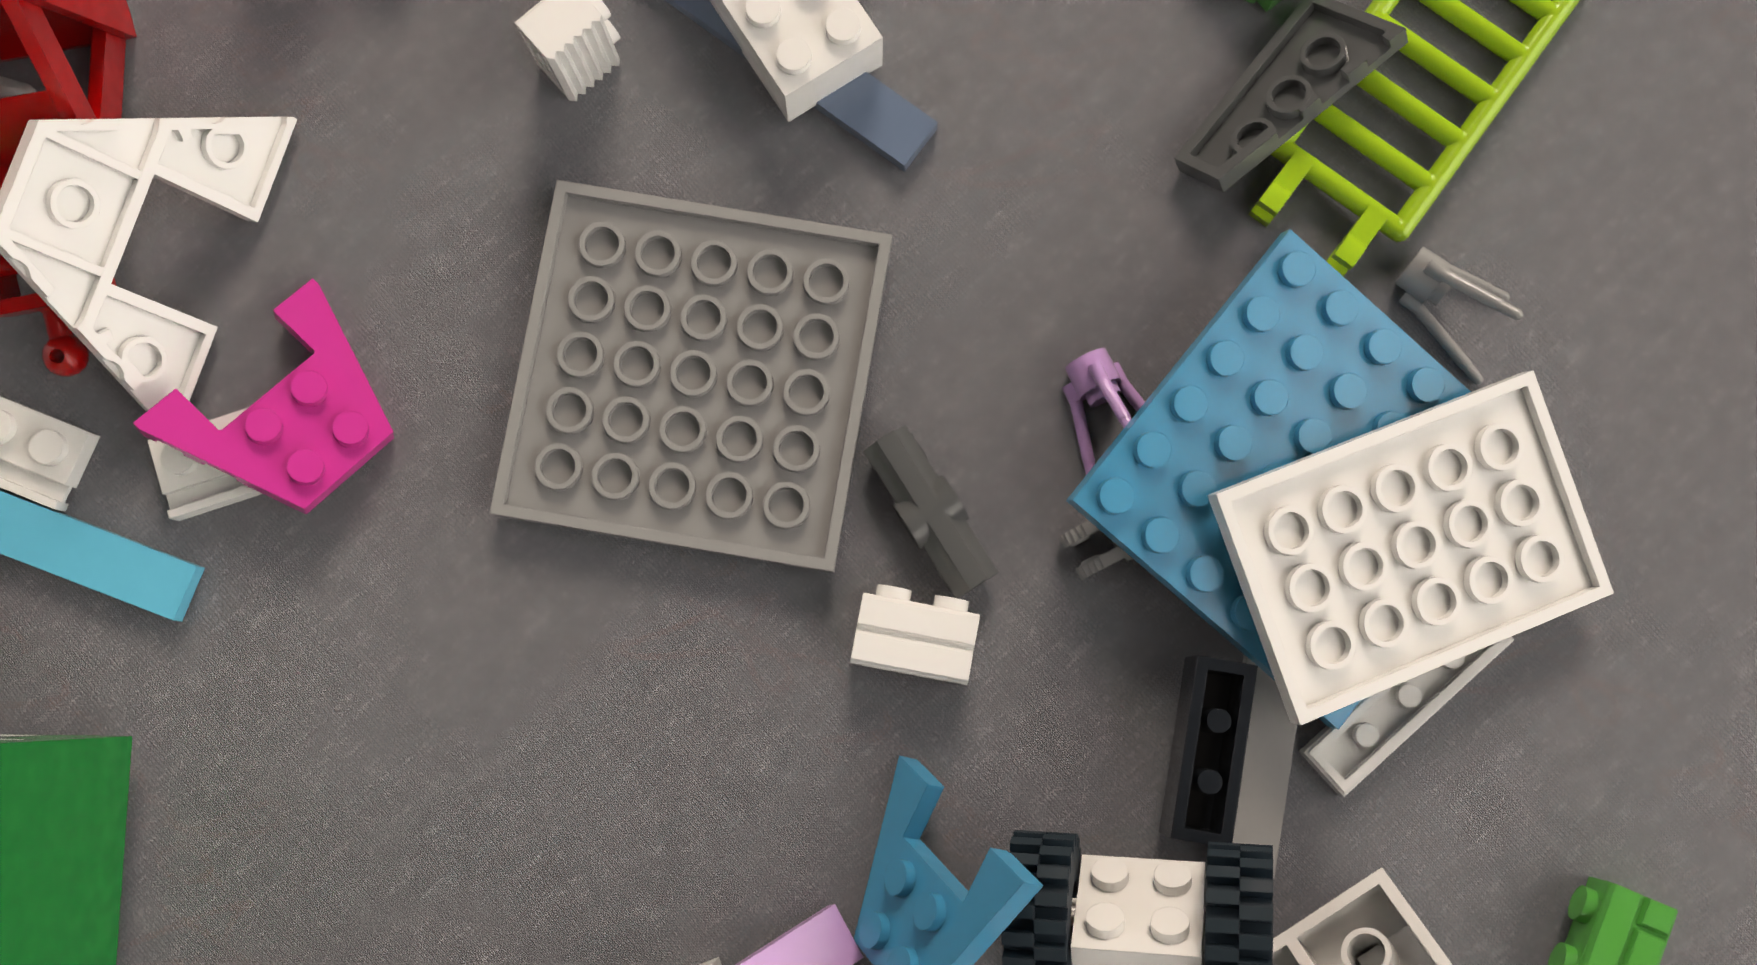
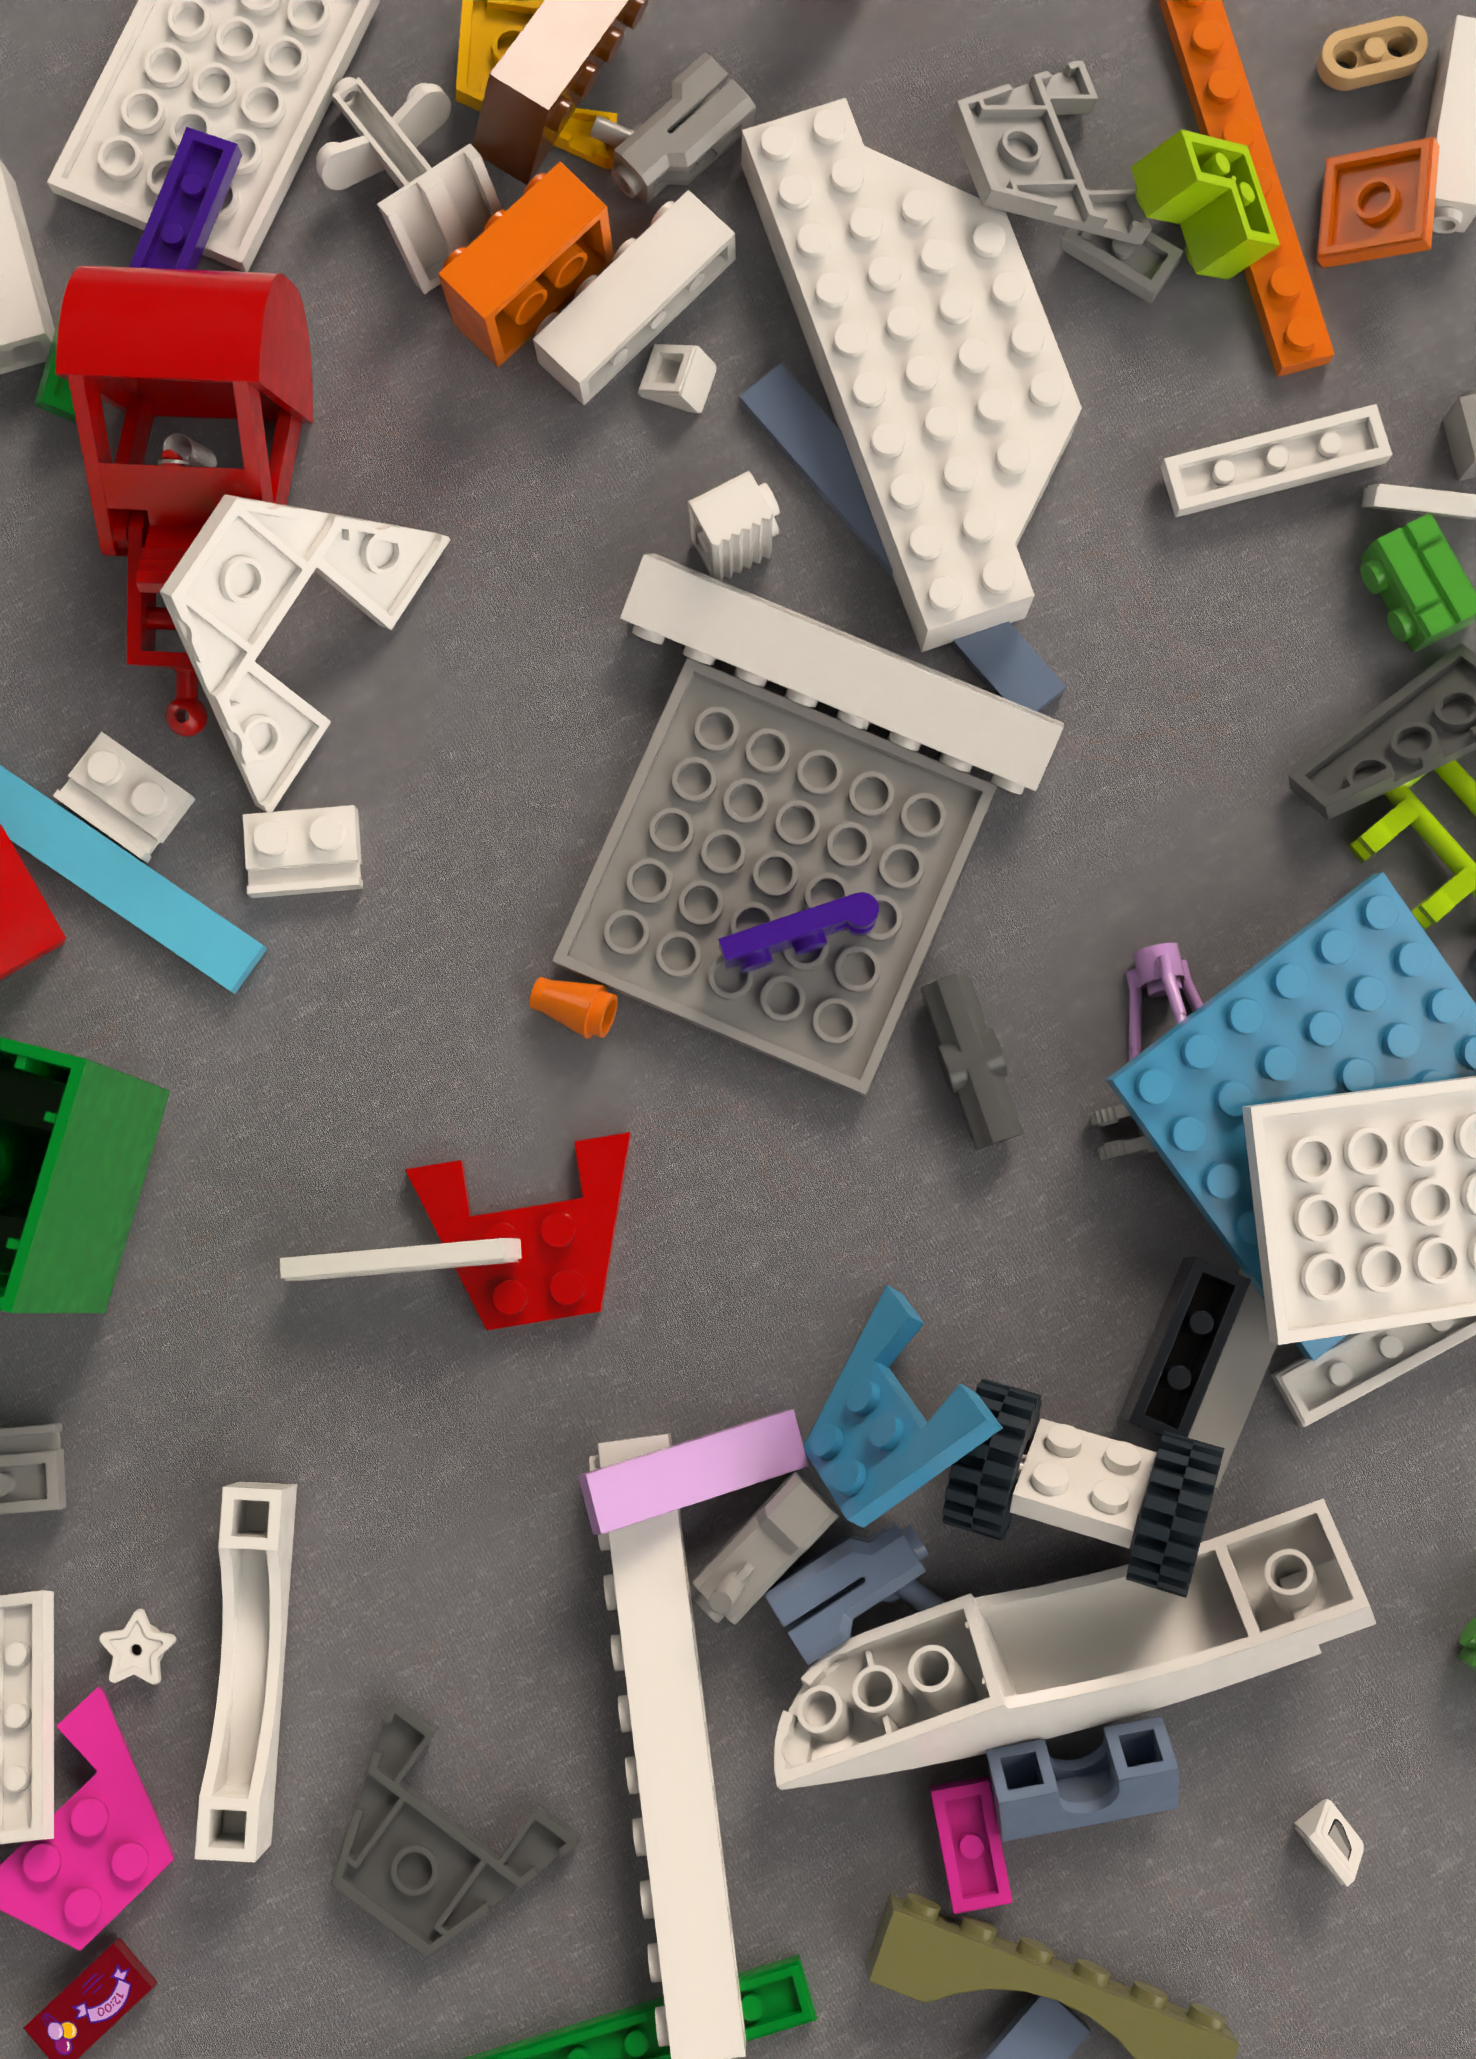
camera: 15 degrees right, 0 degrees up
(300, 433) = (394, 840): dark pink wing -> none
(402, 852) = (401, 1259): none -> white tile
(527, 551) = (578, 1006): none -> orange cone
(543, 814) = (562, 1242): none -> red wing
(710, 158) = (841, 671): none -> white brick
(728, 424) = (801, 931): none -> dark purple plate
(915, 636) = (930, 1175): white brick -> none

